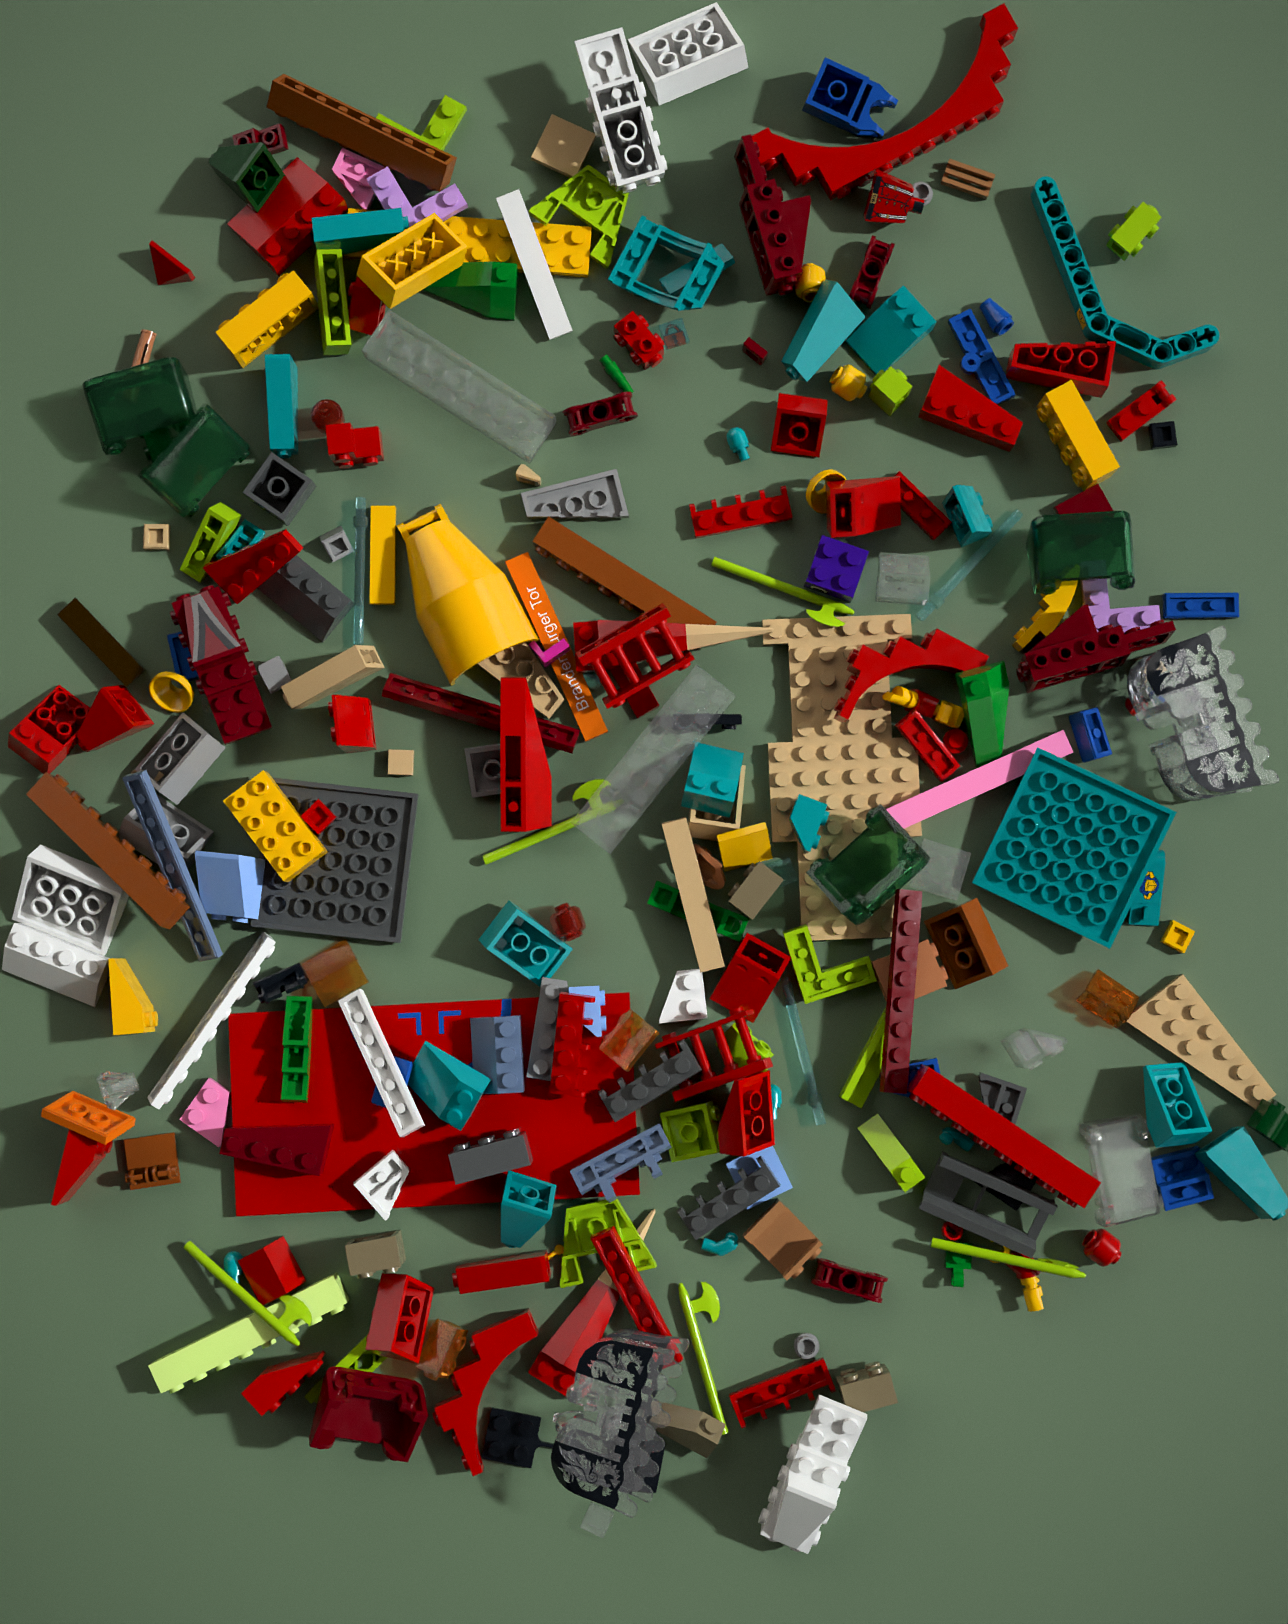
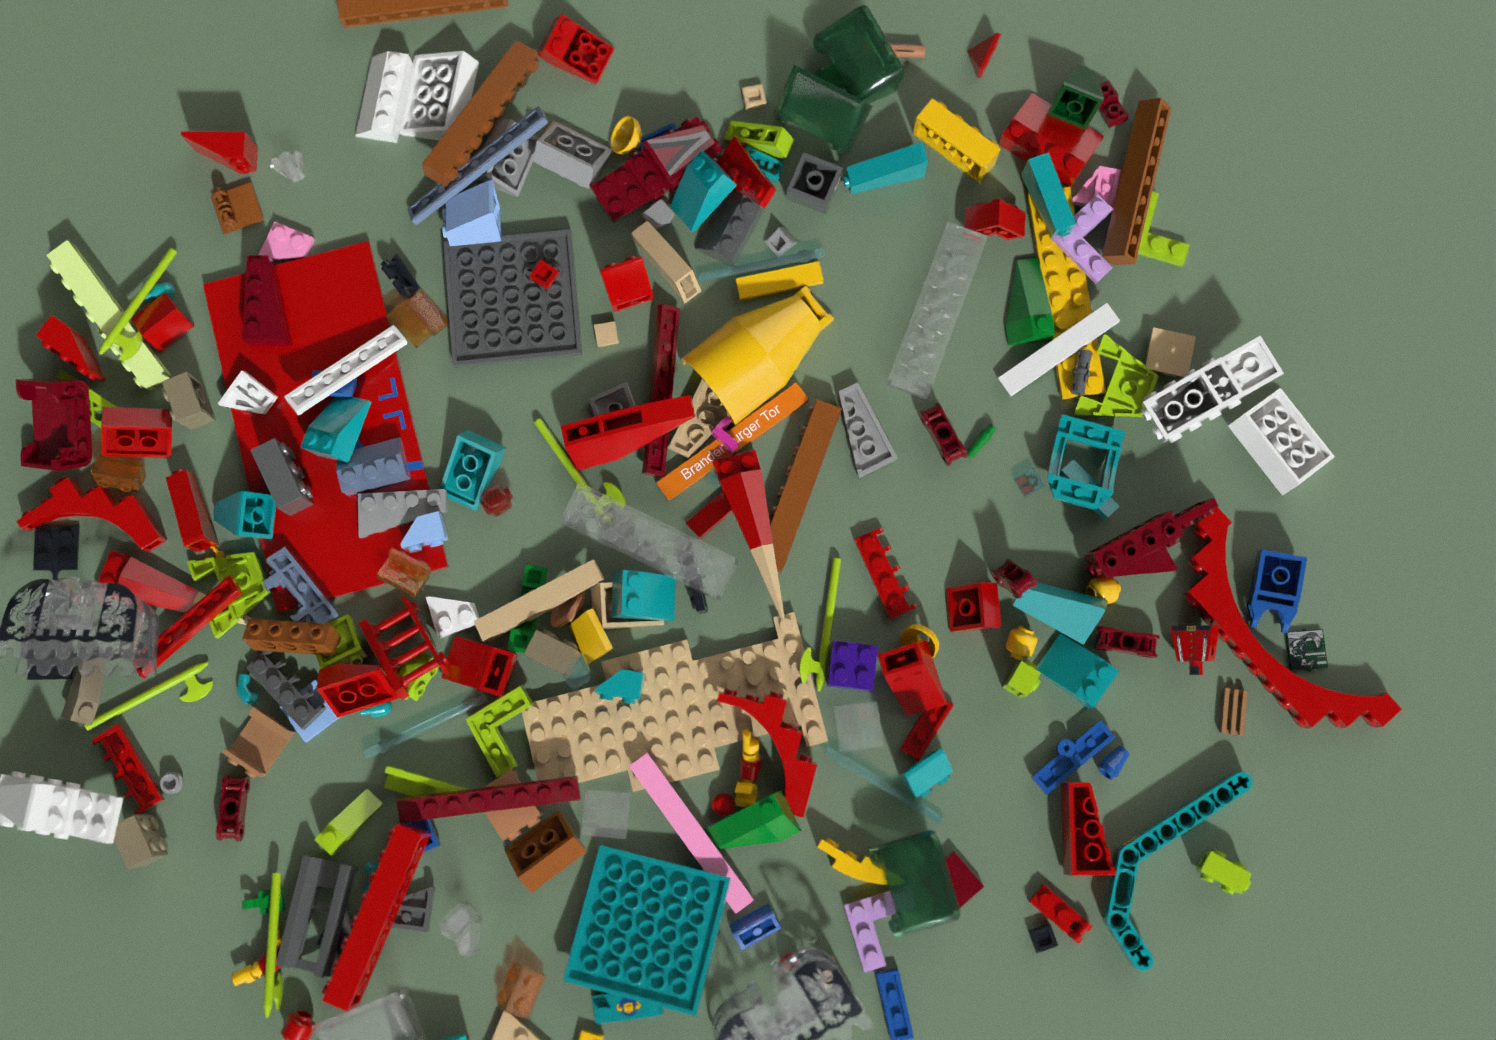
camera: 85 degrees right, 5 degrees down
(88, 1117) = (258, 146): orange tile -> none
(101, 642) = (655, 72): dark brown slope -> none
(112, 718) = (595, 94): red slope -> none
(129, 1003) = (362, 158): yellow slope -> none
(207, 1026) = (352, 226): white plate -> none
(261, 618) = (700, 190): none -> teal slope
(275, 826) = (528, 240): yellow brick -> none
(297, 1049) = (347, 301): green slope -> none
(324, 408) = (885, 208): clear red head -> none
(332, 301) = (984, 190): lime brick -> none
(354, 445) = (864, 230): red brick -> none
(411, 260) = (1032, 243): yellow brick -> none
(526, 475) = (875, 383): tan slope -> none
(566, 246) = (1081, 372): none -> dark grey pin
(568, 1044) = (390, 521): red hinge -> none
(614, 643) = (754, 500): red fence -> none
(643, 346) = (1010, 459): red brick -> none
(651, 1084) = (370, 599): dark grey hinge -> none
(675, 1179) = (291, 637): none -> dark orange brick
(738, 442) = (945, 558): teal cylinder -> none
(754, 351) = (1029, 554): dark red tile -> none
(780, 372) = (1013, 578): none -> dark red piece
(870, 867) = (591, 748): clear green windscreen -> none
(918, 86) = (1306, 650): none -> piece
(922, 191) = (1211, 672): light grey plate -> none
(927, 745) = (713, 780): red tile -> none
(947, 1235) = (285, 889): red hinge -> none
(968, 412) = (1021, 750): red wedge -> none
(1077, 436) = (1021, 856): yellow brick -> none
(1080, 651) = (835, 893): dark red wedge -> none

